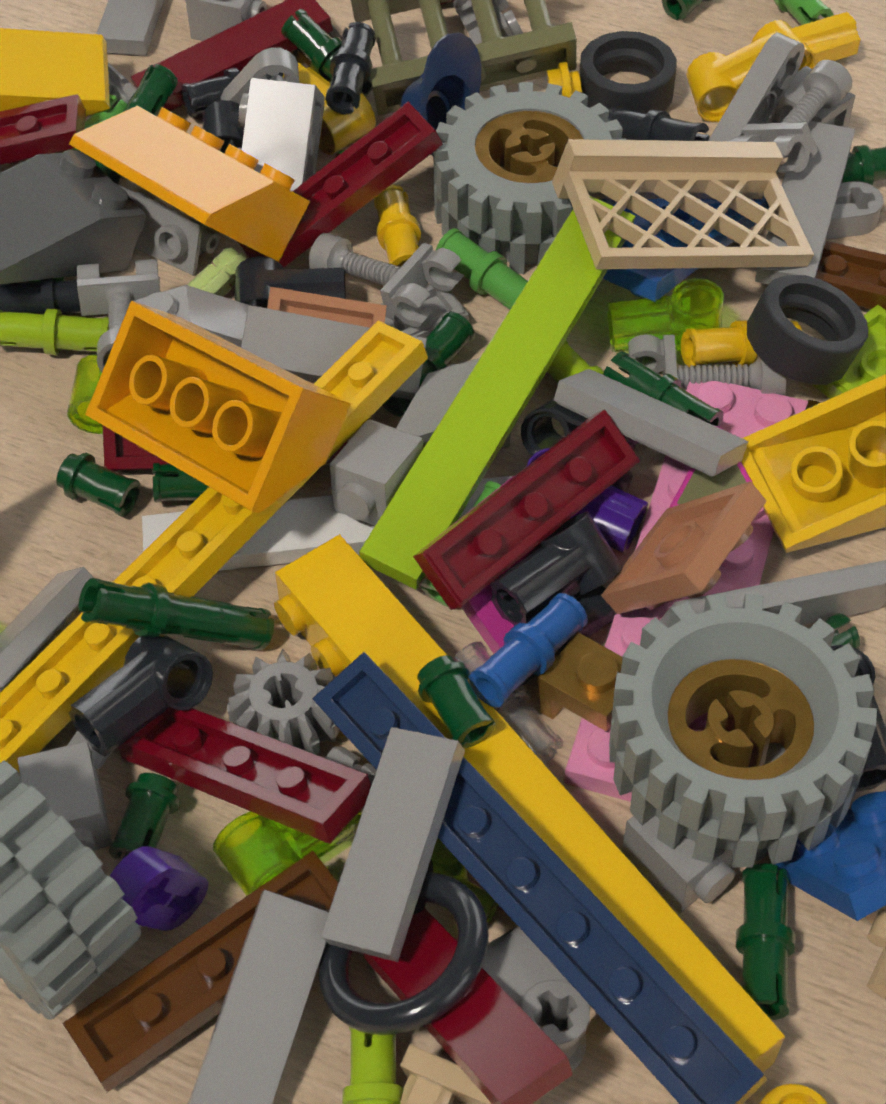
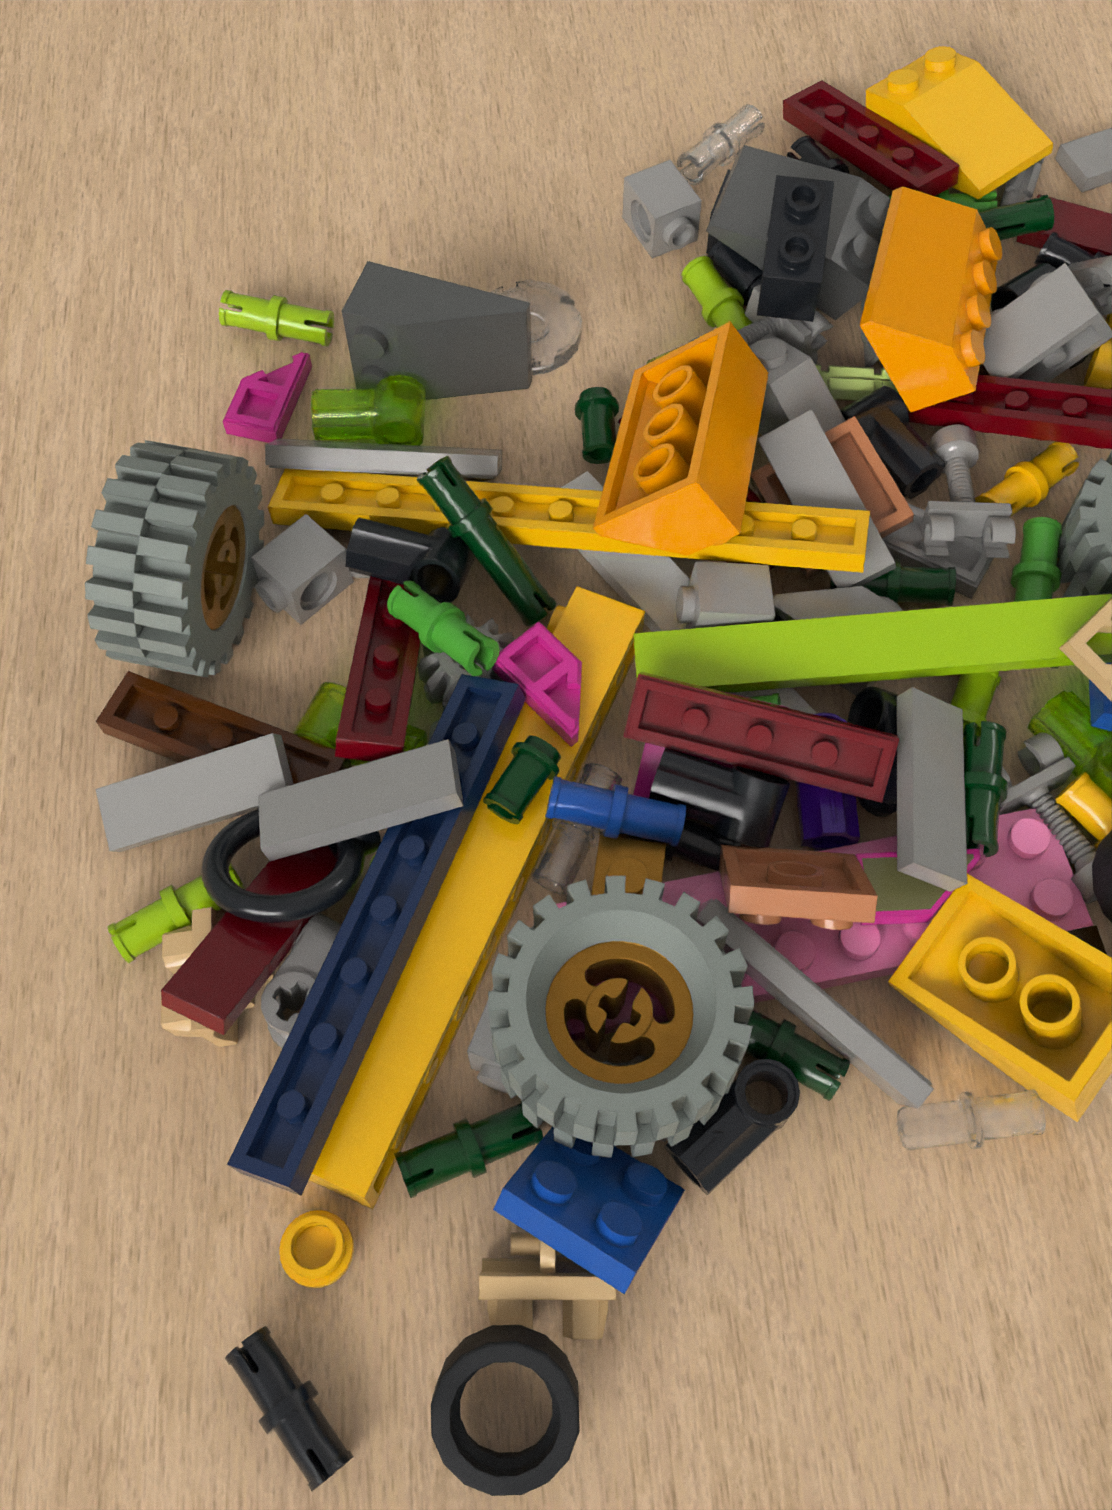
camera: 60 degrees right, 10 degrees up
(83, 226) = (795, 248): none -> black brick
(146, 814) = (322, 630): dark green pin -> none
(159, 887) = (251, 665): dark purple beam -> none
(251, 690) = (443, 628): none -> bright green pin
(346, 630) = (547, 677): none -> dark pink tile

